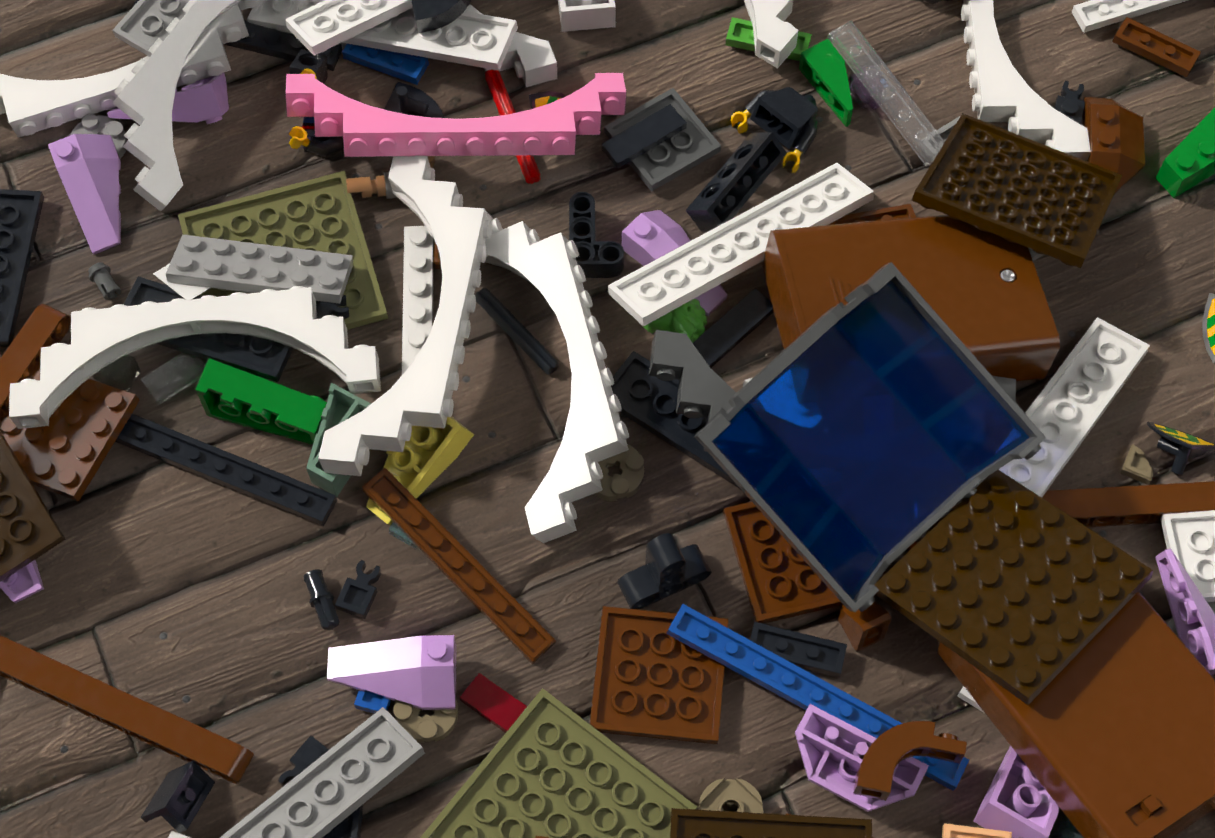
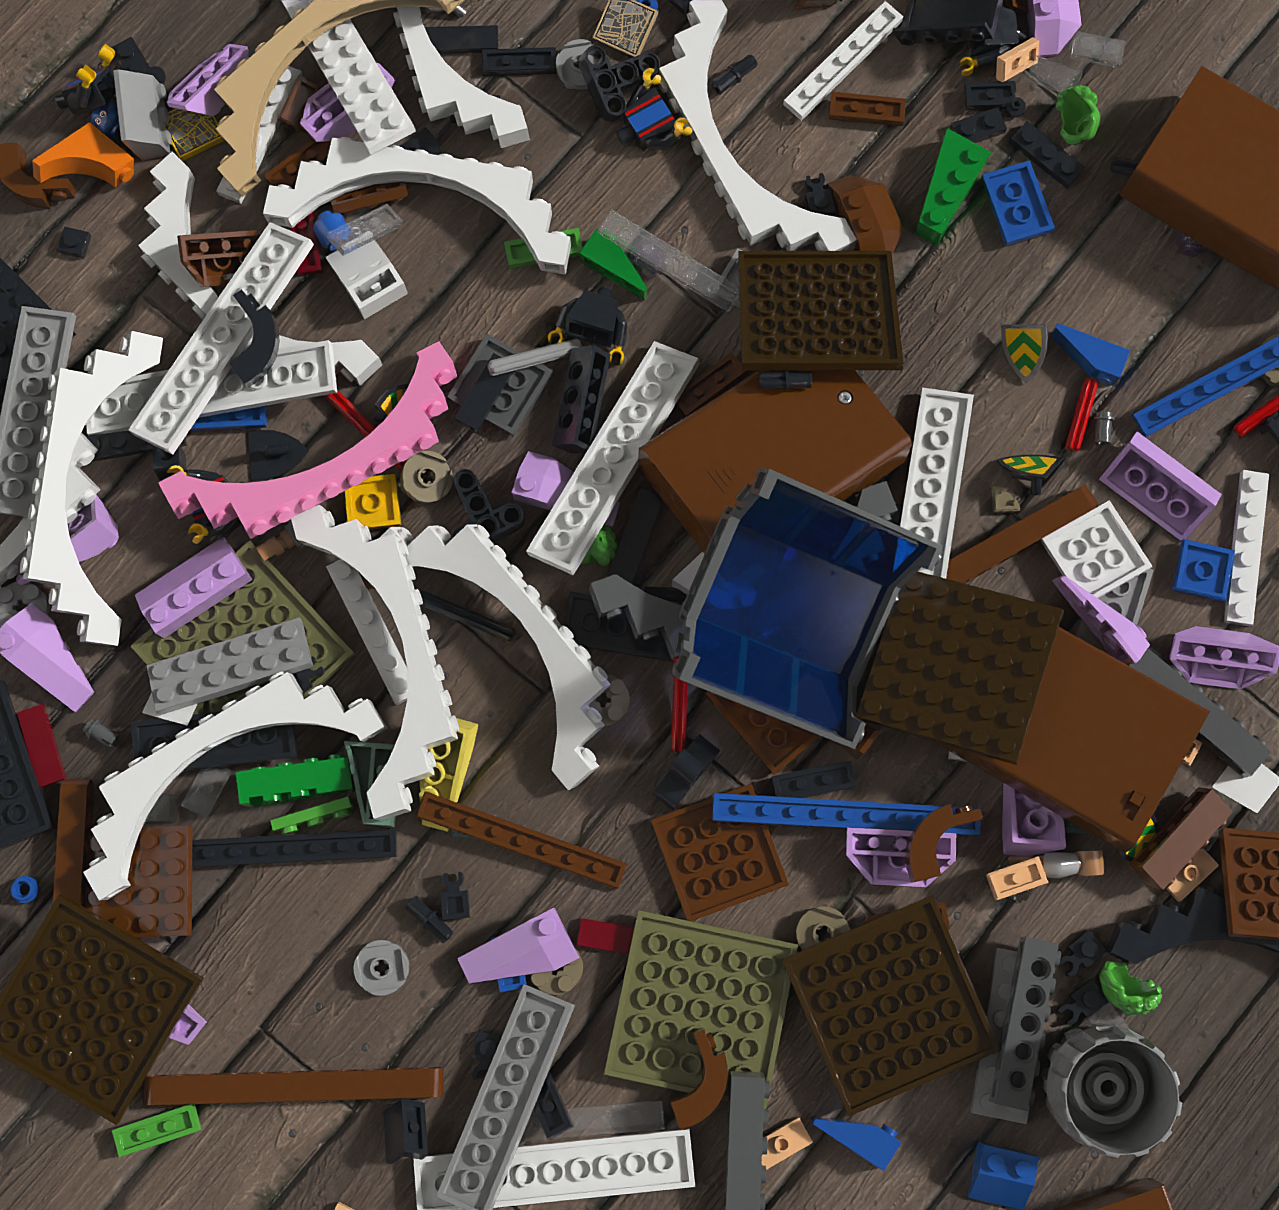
camera: 25 degrees left, 15 degrees up
(43, 267) = (41, 745): none -> dark red tile
(255, 640) = (369, 958): none -> light grey plate
(263, 445) = (313, 816): none -> bright green plate
(265, 188) = (192, 588): none -> lavender slope
(485, 185) = (374, 502): none -> yellow plate
(531, 194) = (438, 470): none -> dark tan plate
(694, 500) = (679, 713): none -> red axle
(704, 122) = (532, 357): none -> light grey axle
(952, 230) = (785, 380): none -> black axle

